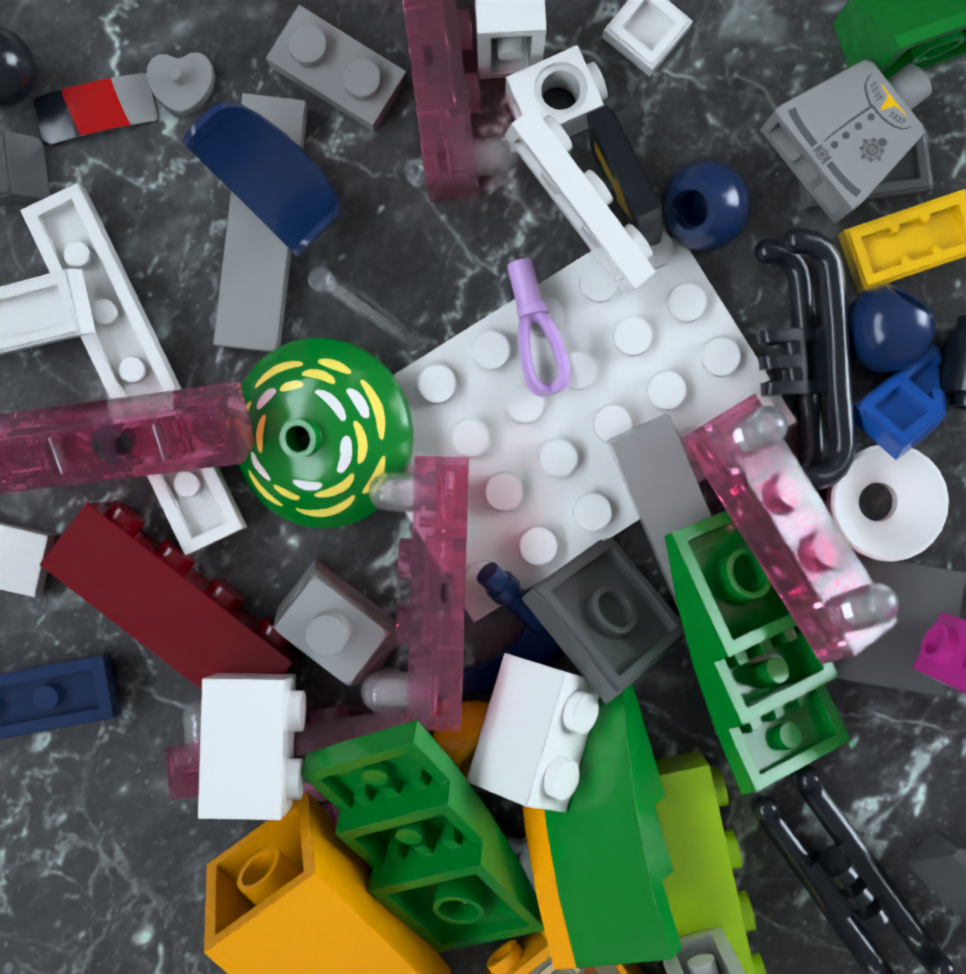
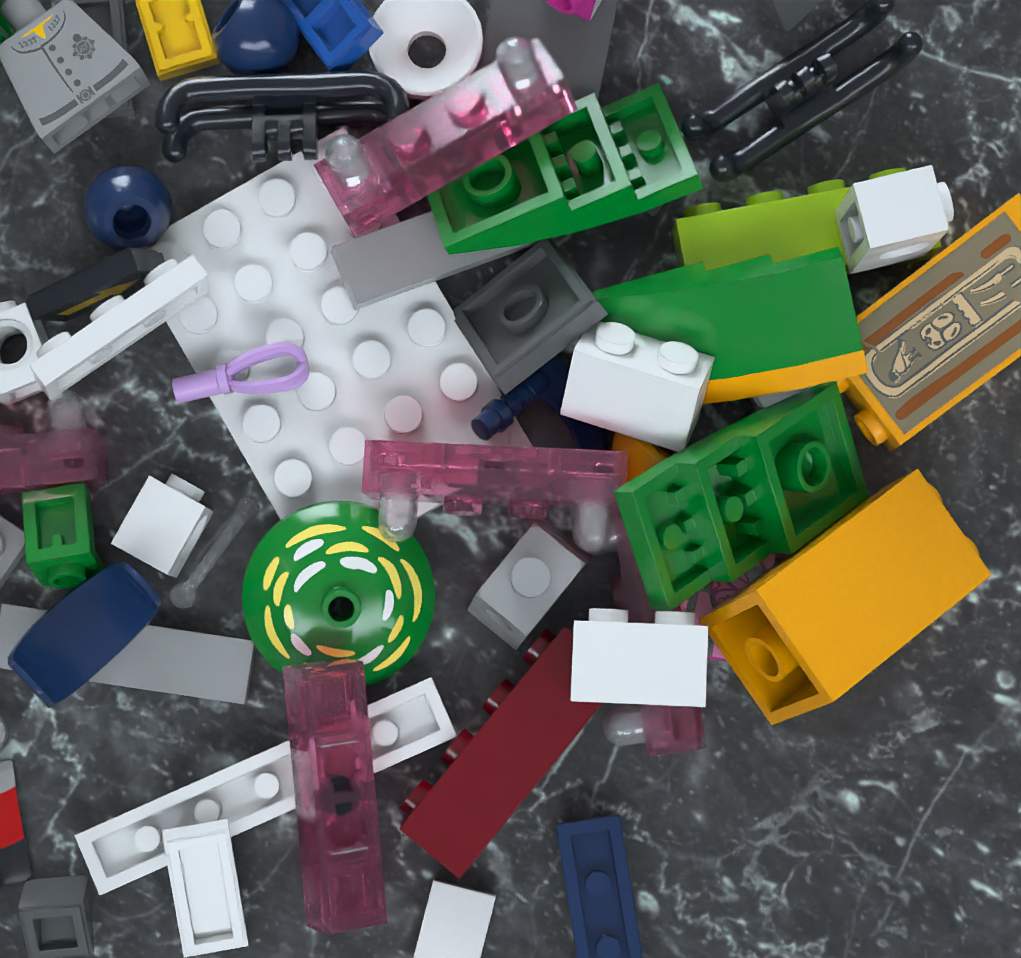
camera: 90 degrees left, 5 degrees down
(373, 154) = (60, 535): none -> green bracket
(386, 256) = (164, 524): none -> white brick

